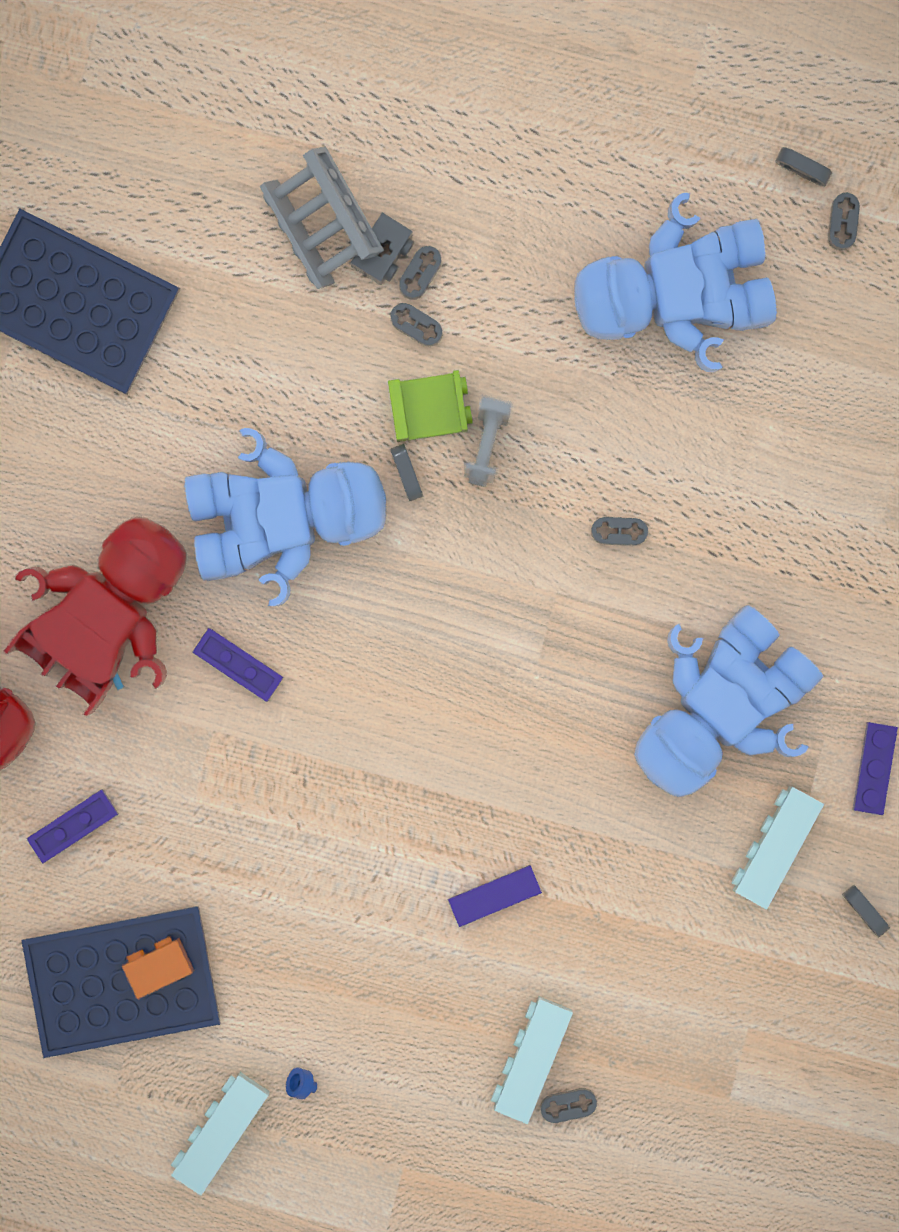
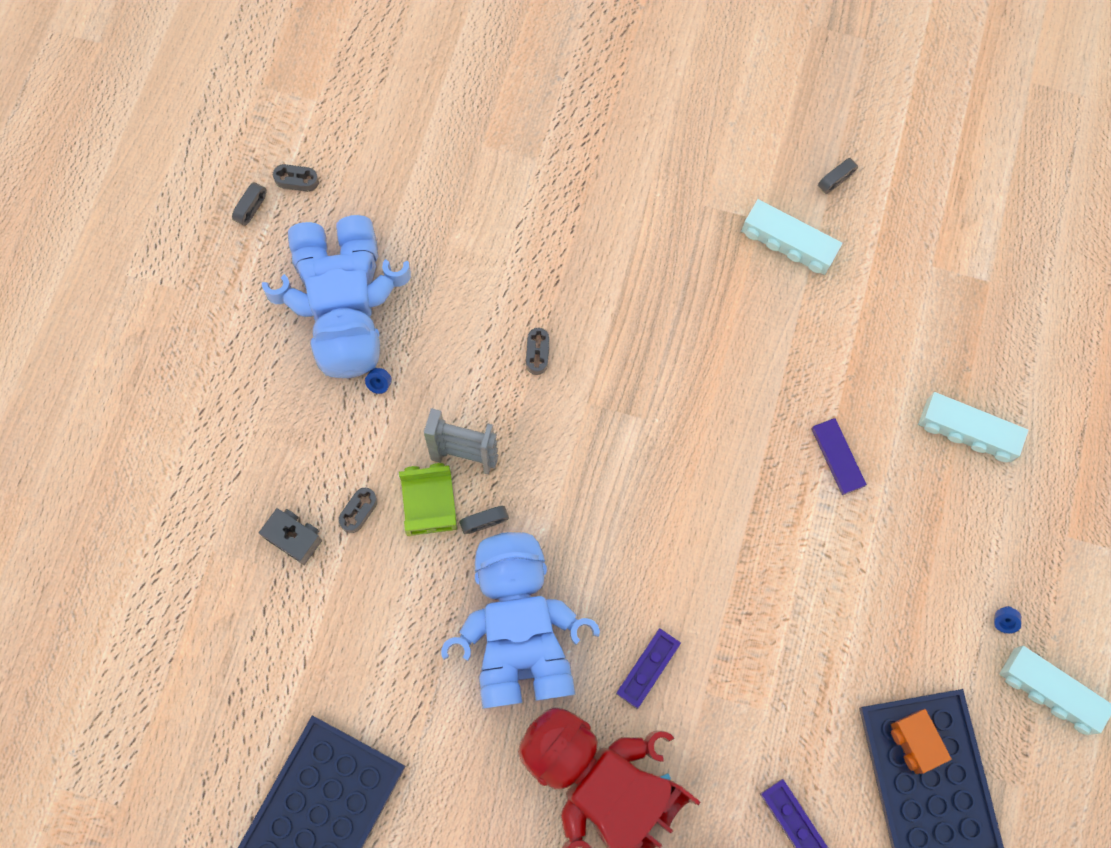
camera: 90 degrees left, 15 degrees down
(347, 211) = (237, 571): light grey fence -> none
(414, 269) = (316, 500): dark grey beam -> none
(571, 1112) = (1007, 401): dark grey beam -> none
(575, 340) = (378, 380): none -> blue tile
(723, 704) = (678, 269): light blue piece -> none
(875, 768) = (726, 168): dark purple plate -> none

